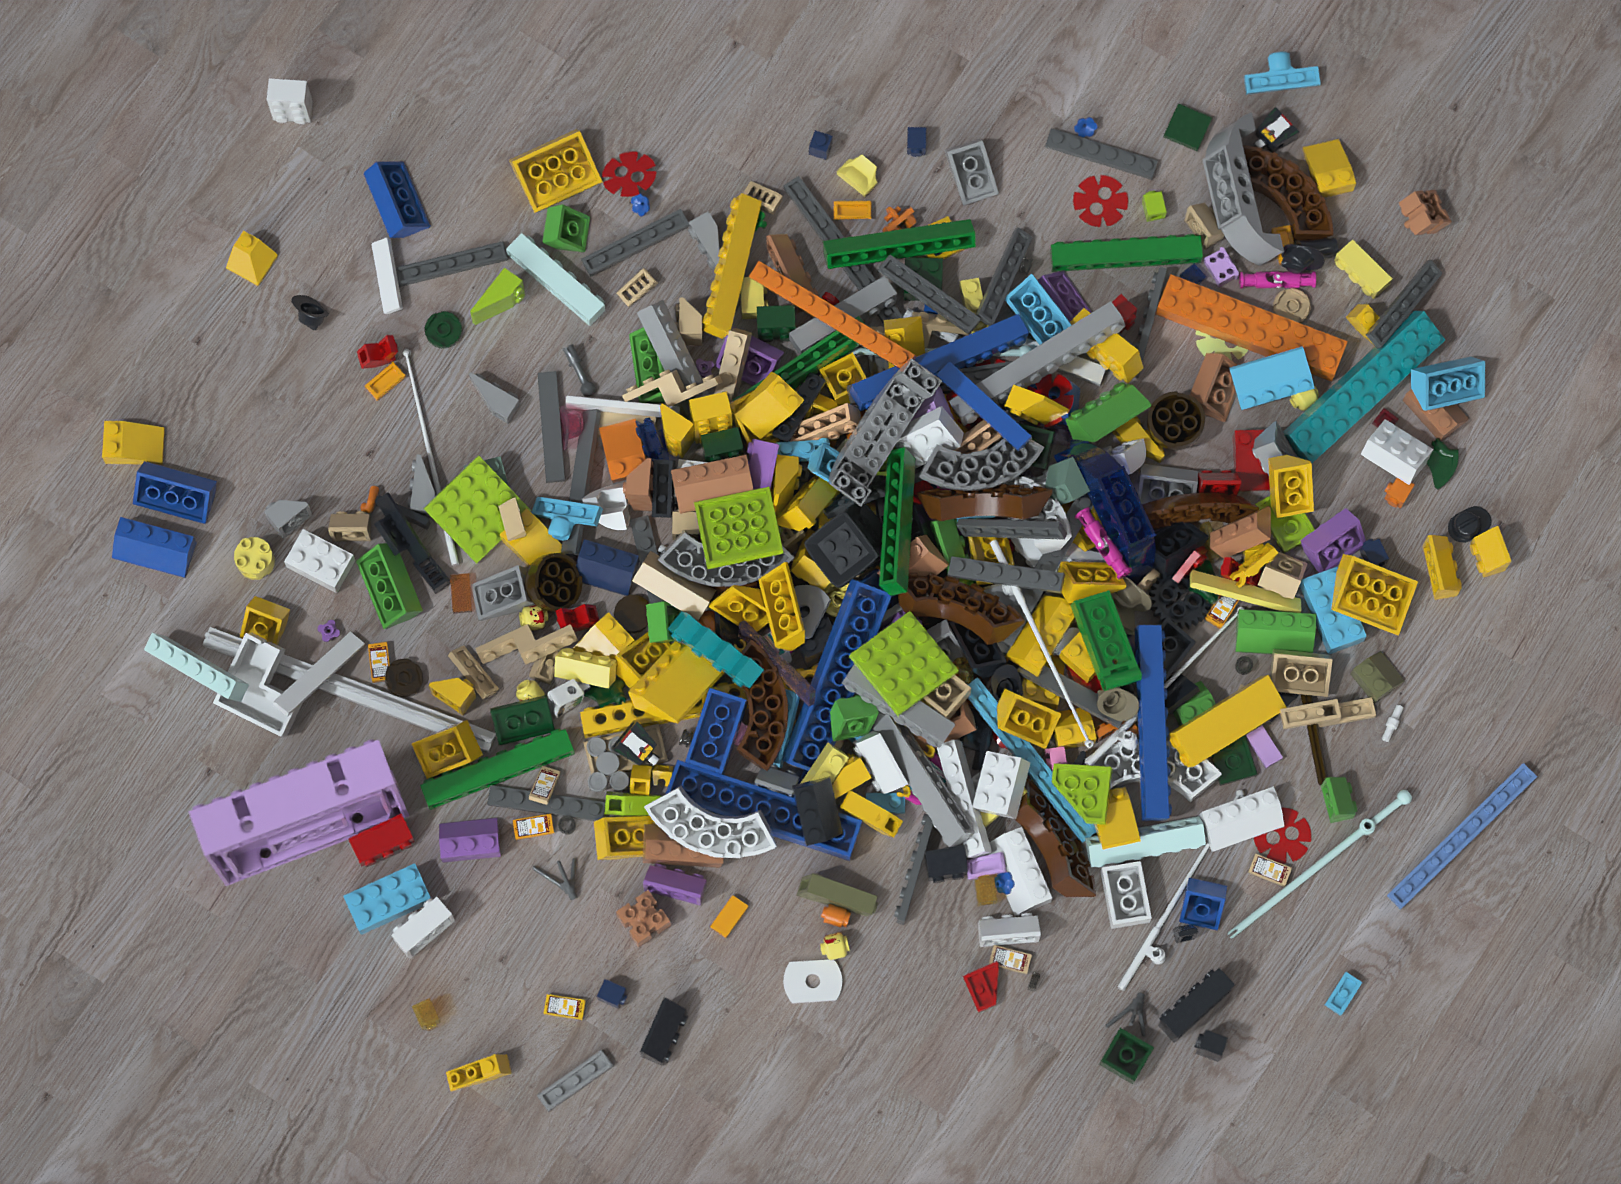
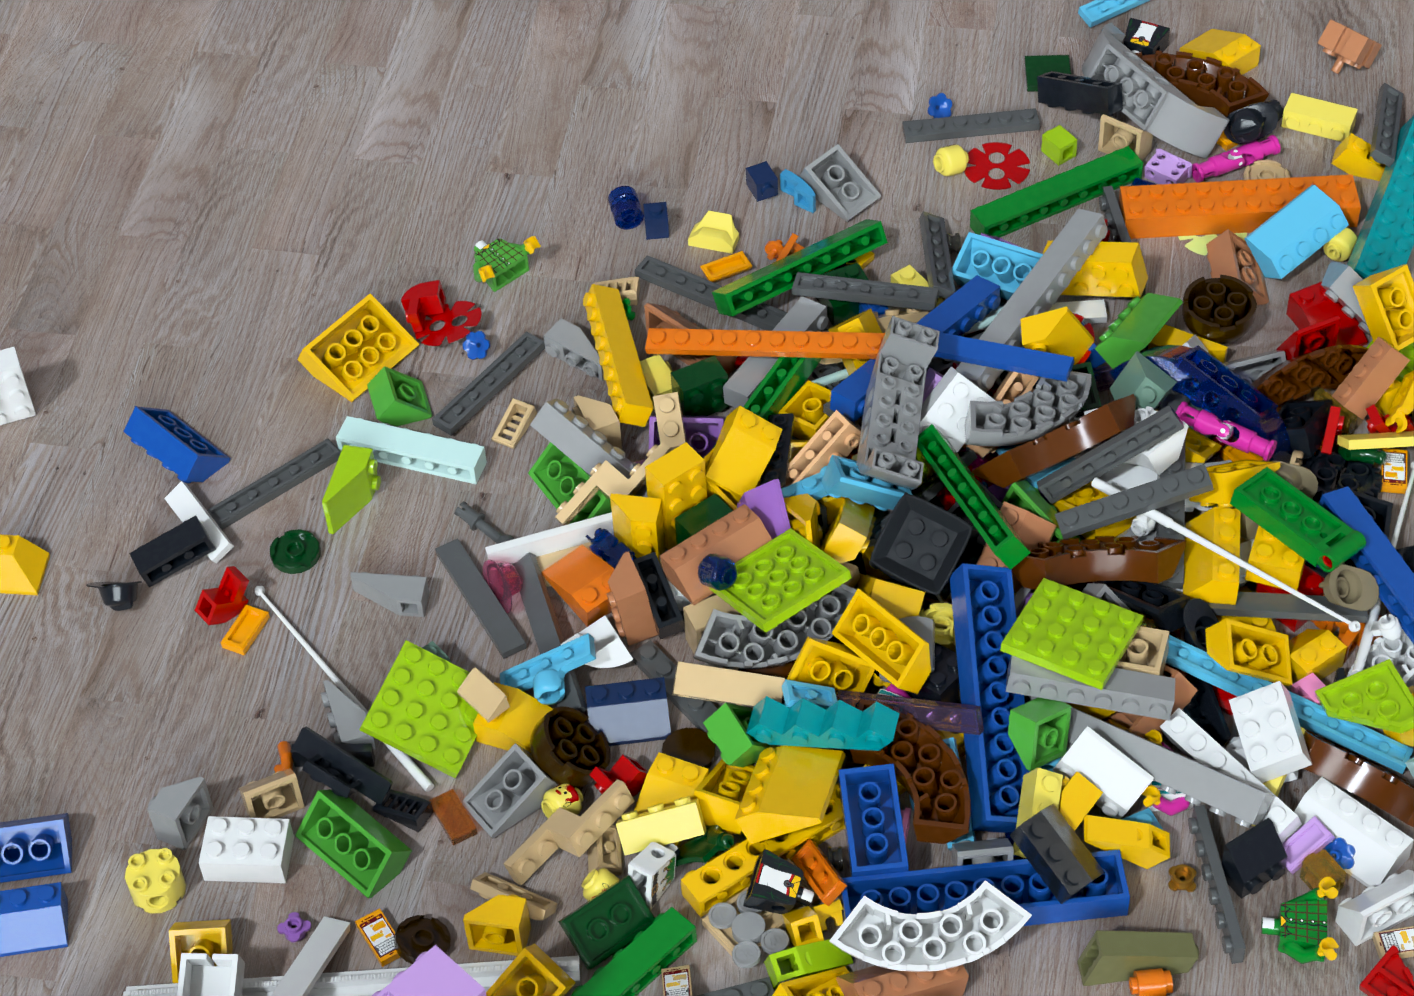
camera: 20 degrees left, 25 degrees down
(358, 296) = (172, 551): none -> black brick
(618, 145) = (423, 300): none -> red brick
(668, 747) = (819, 872): none -> orange tile
(690, 133) = (502, 261): none -> bright green torso
(701, 503) = (717, 572): none -> clear blue head
(720, 622) = (817, 694): none -> medium azure plate
(804, 121) = (625, 207): none -> clear blue wheel
(896, 846) = (1182, 871): none -> pearl gold plate
(939, 166) = (795, 186): none -> dark azure slope
(951, 921) = (1303, 925): none -> green torso
(1065, 184) = (950, 160): none -> light yellow head
(1190, 170) = (1080, 93): none -> black brick

